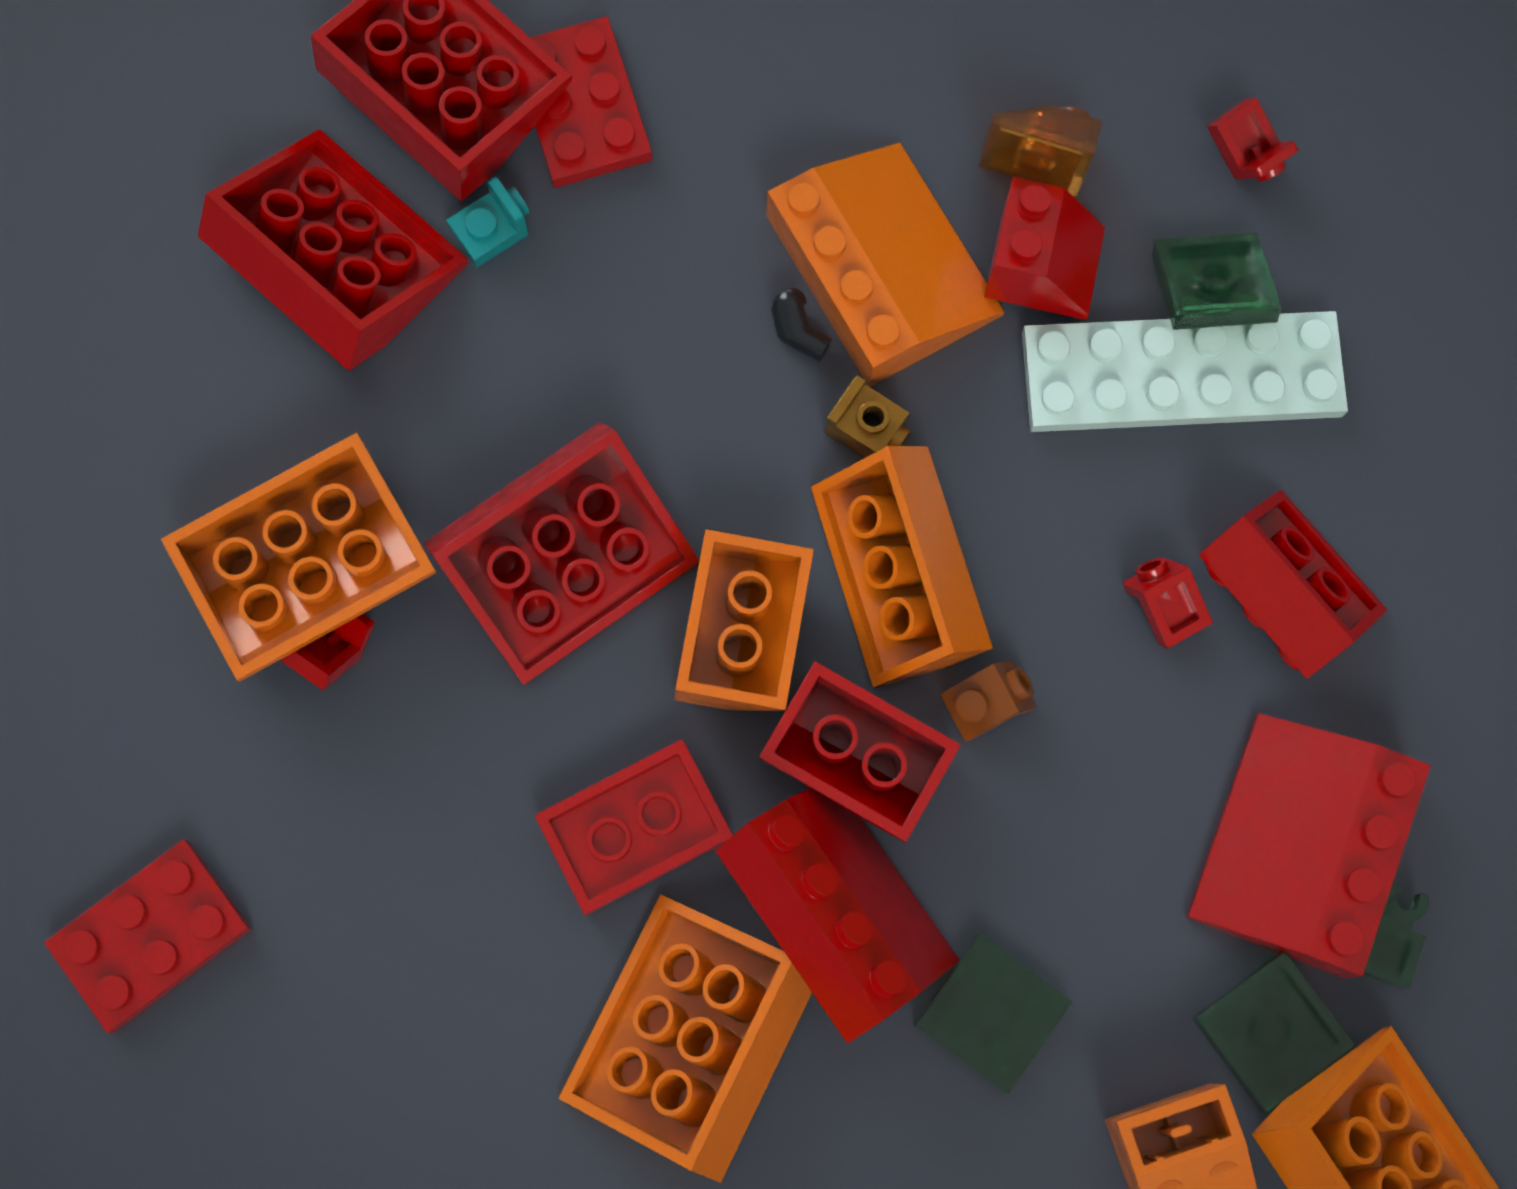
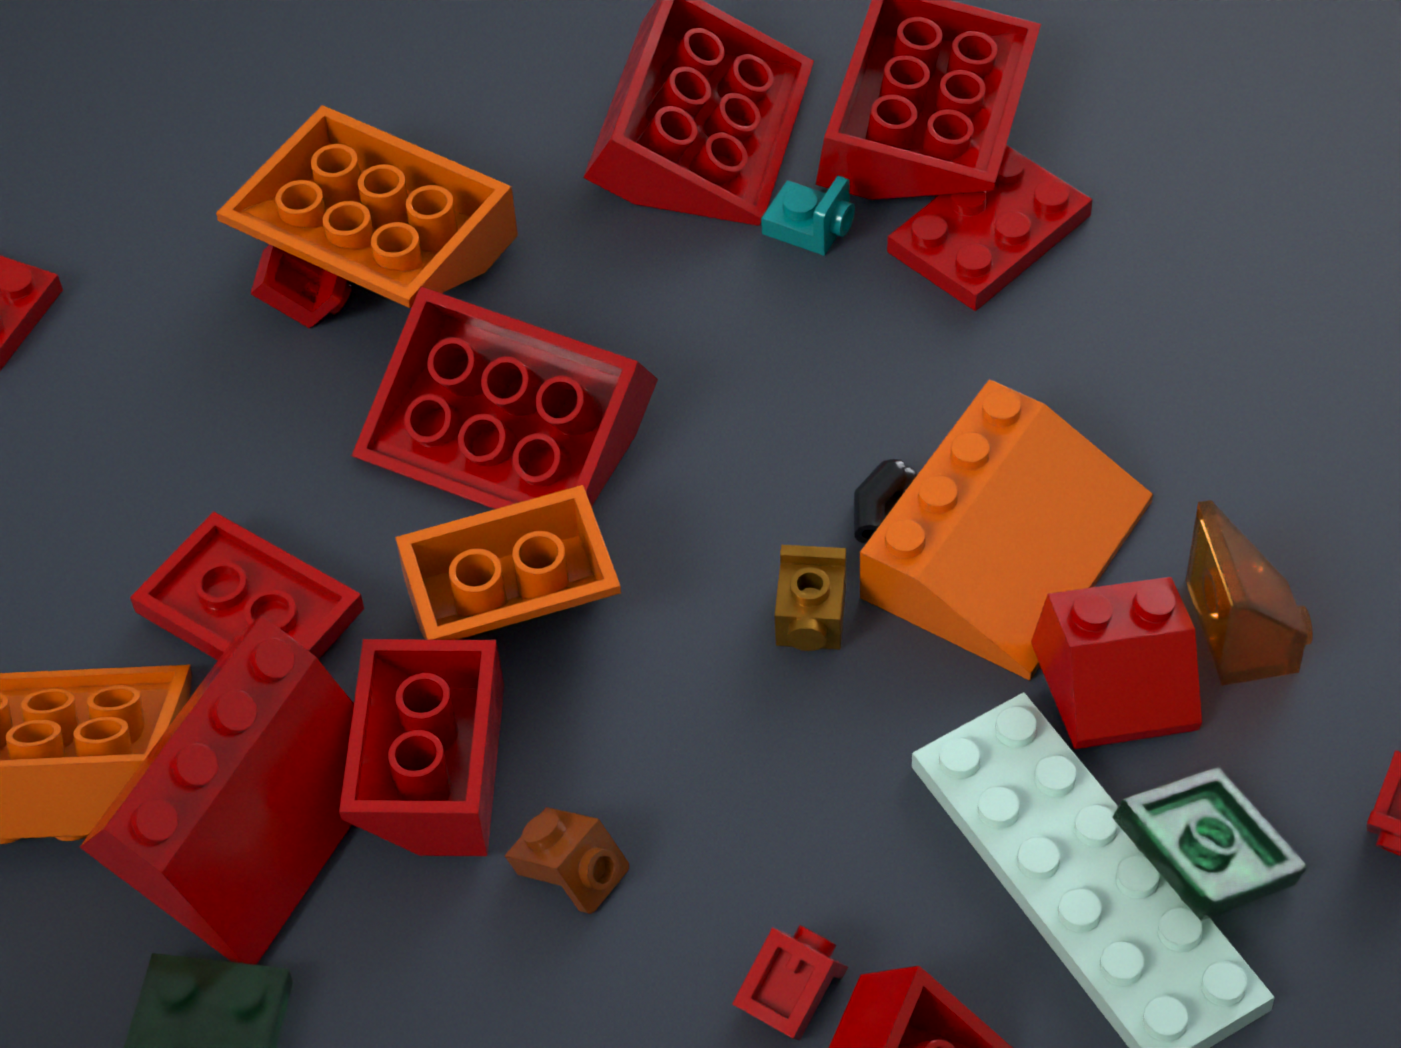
camera: 70 degrees right, 25 degrees down
(900, 565) = (671, 703): orange slope -> none

